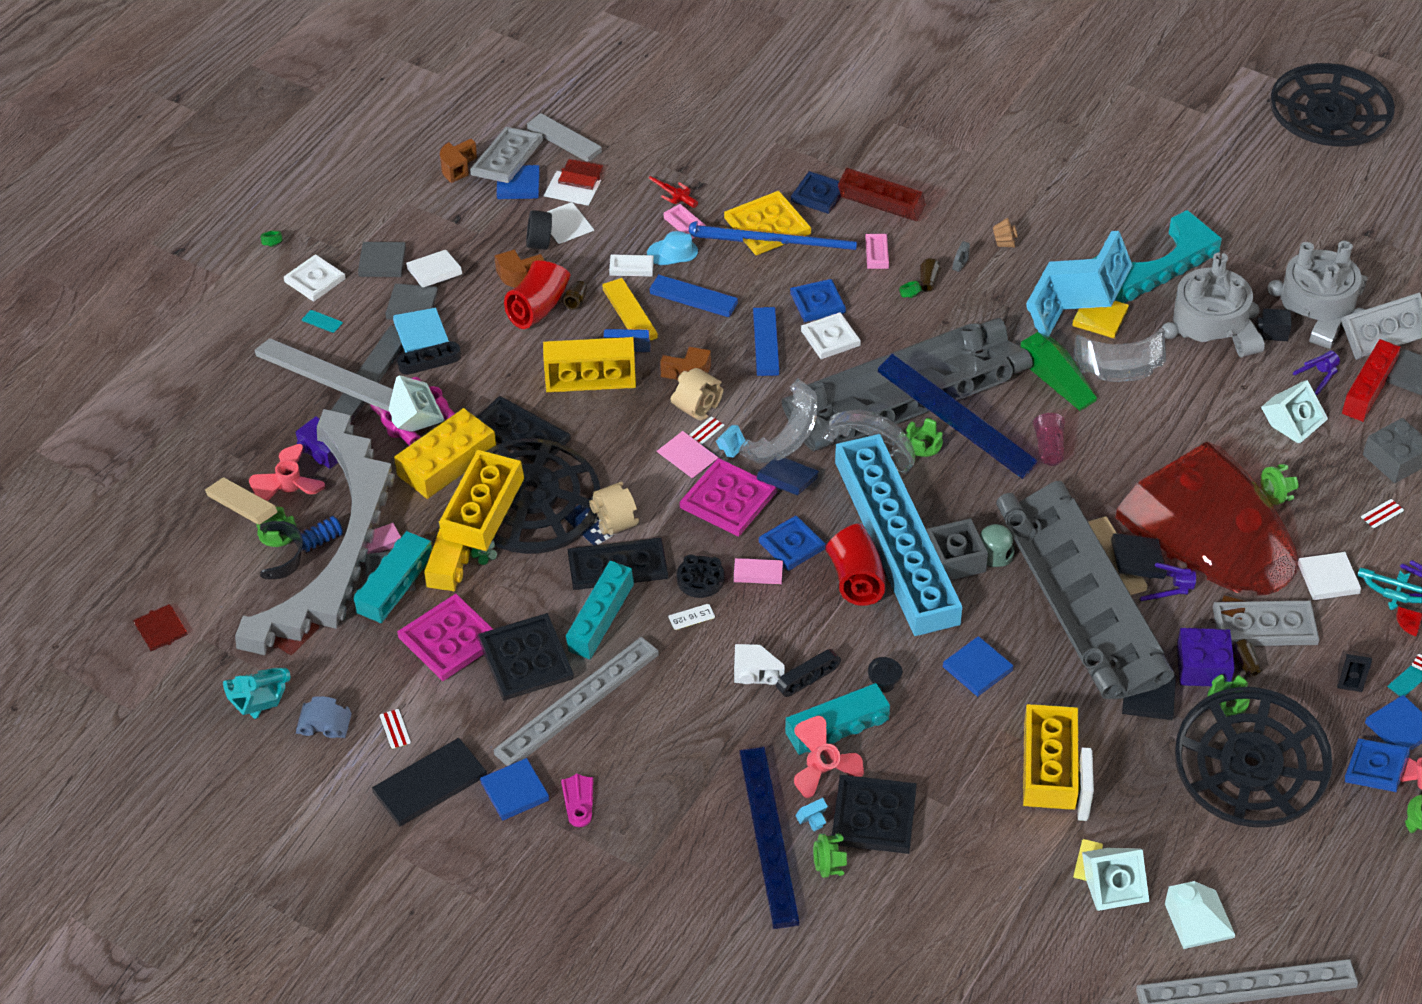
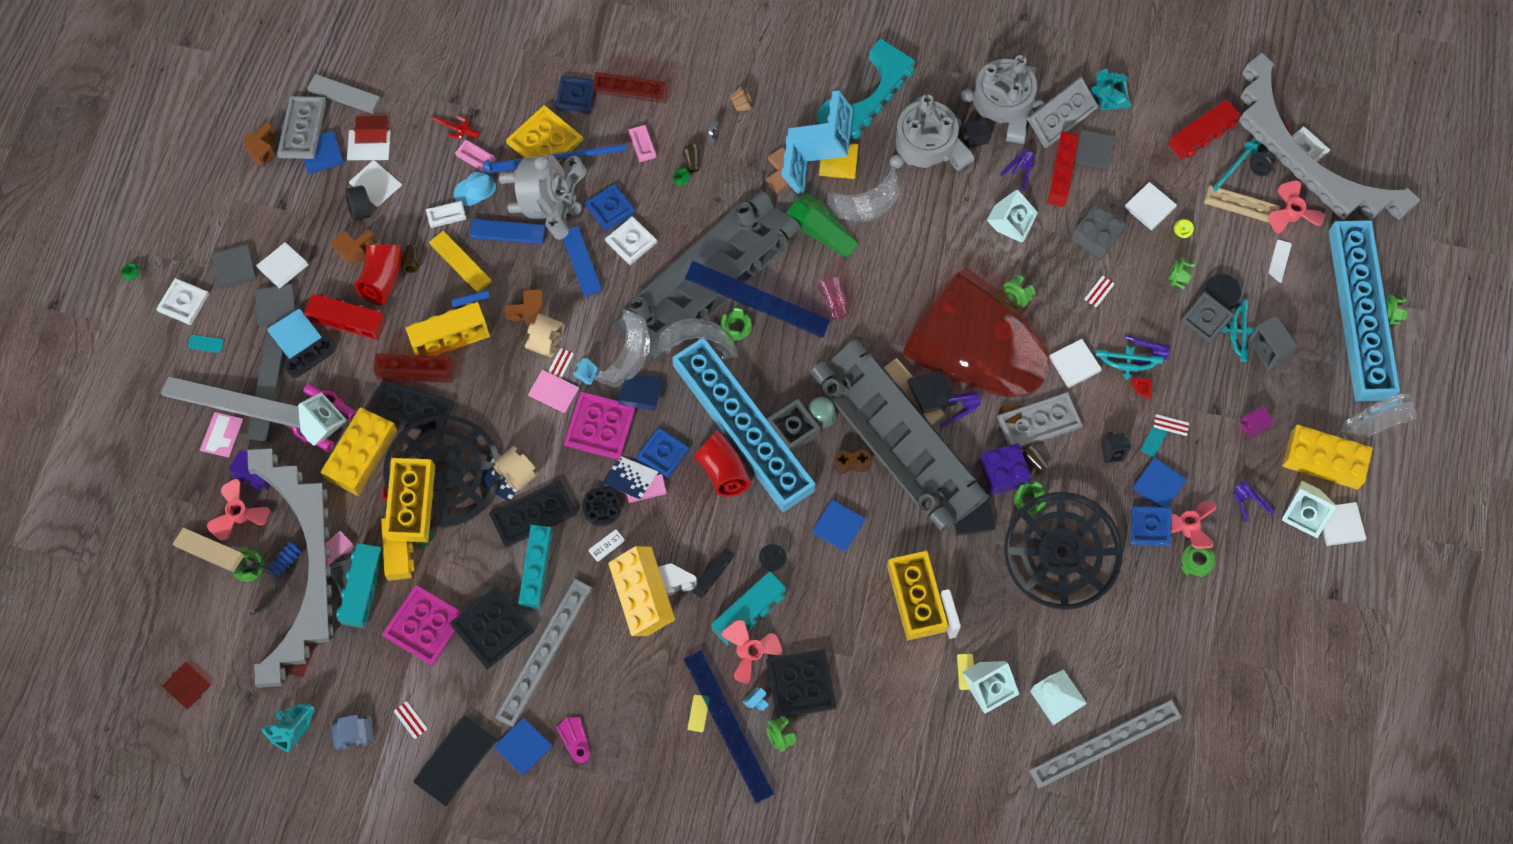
camera: 20 degrees left, 20 degrees up
(302, 406) = (221, 434): none -> sticker
(482, 329) = (345, 316): none -> red brick
(539, 390) = (414, 368): none -> clear red brick
(714, 662) = (641, 591): none -> yellow brick
(736, 815) = (698, 714): none -> light yellow sticker
(744, 555) = (630, 477): none -> sticker
(750, 257) = (546, 190): none -> light grey piece
(1016, 603) = (852, 461): none -> reddish brown axle
(1021, 318) = (776, 181): none -> nougat tile

